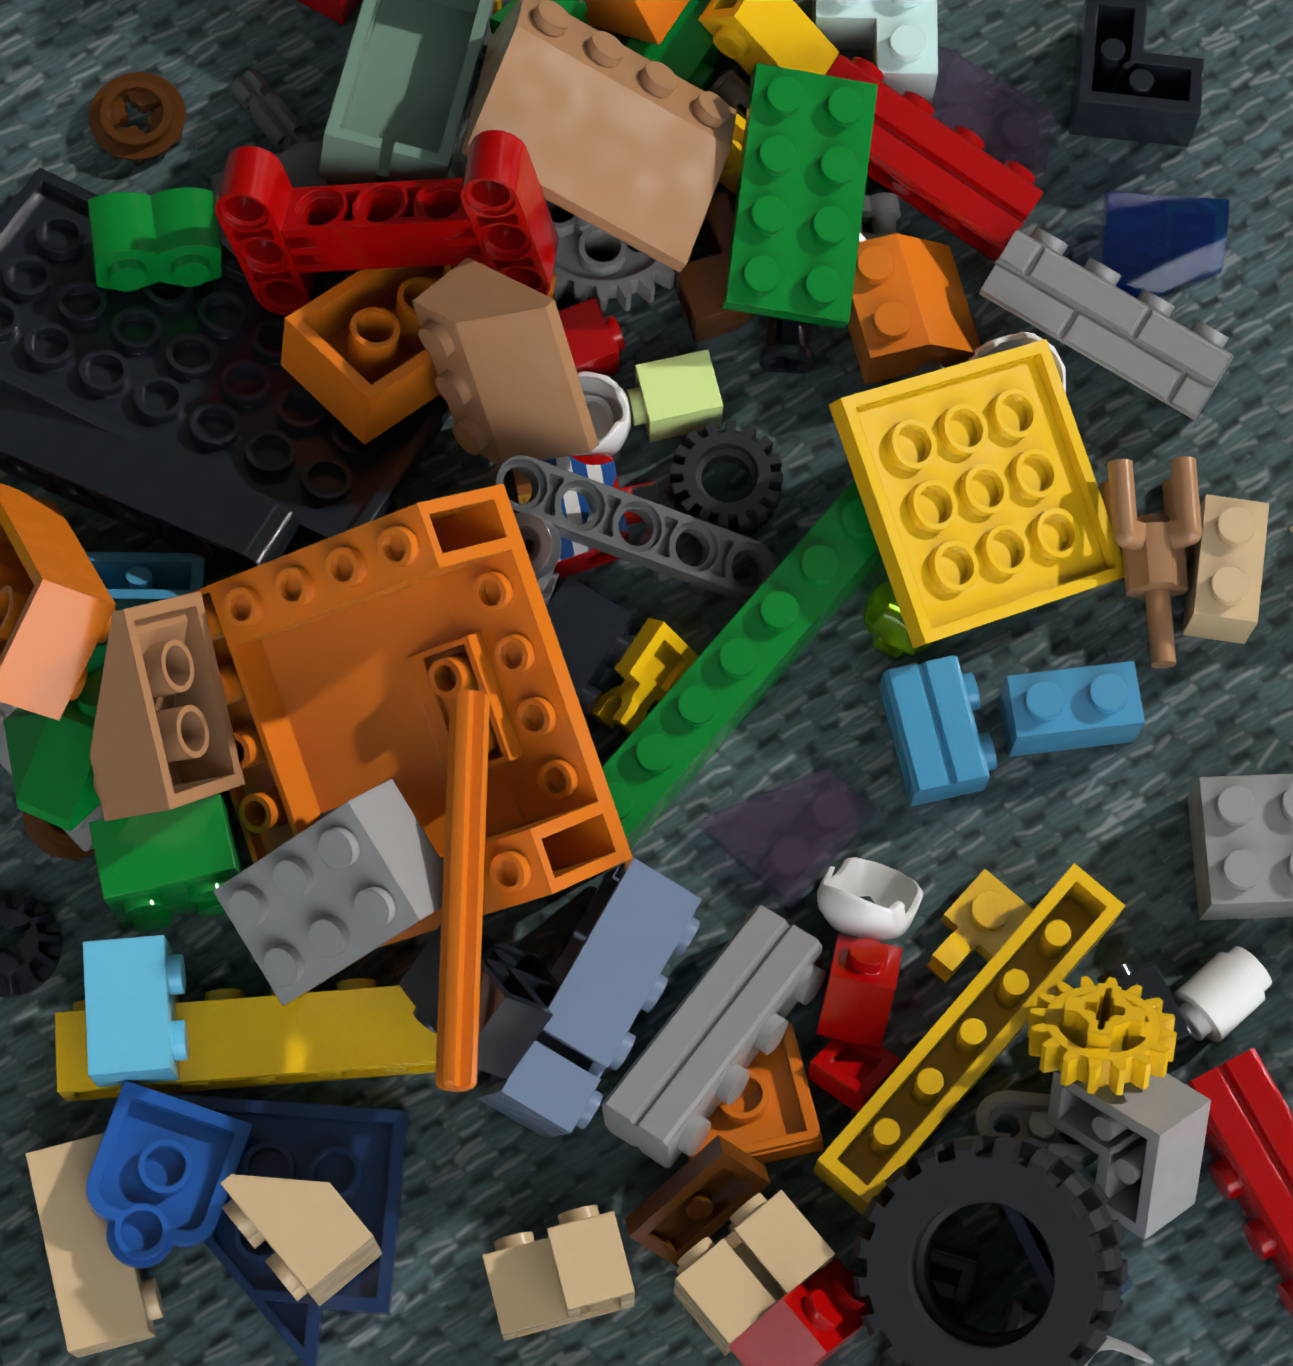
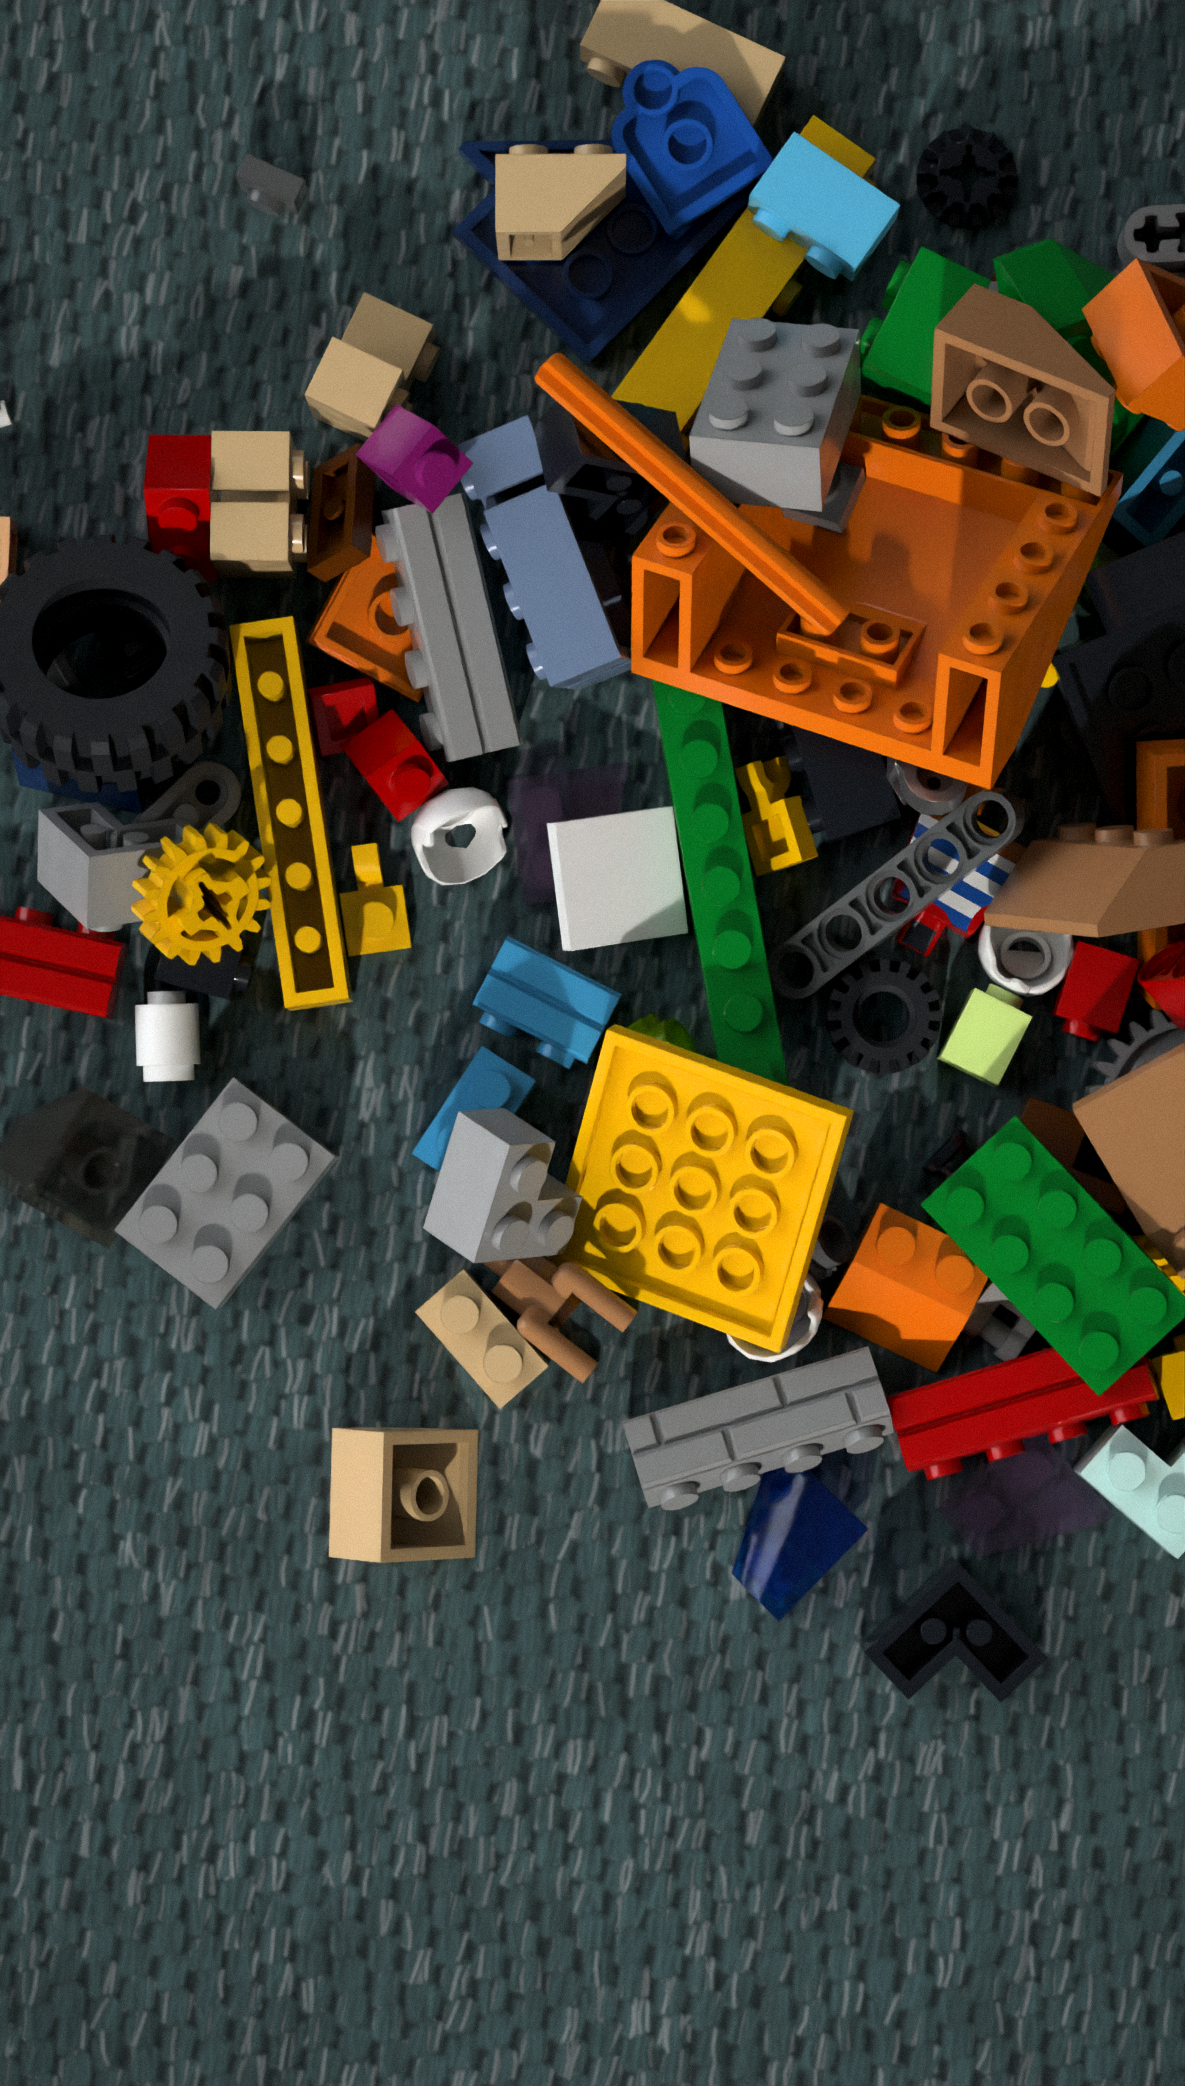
camera: 135 degrees right, 15 degrees up
(612, 1155) = (414, 458): none -> magenta brick
(796, 750) = (617, 878): none -> white tile
(1117, 624) = (497, 1192): none -> light grey brick

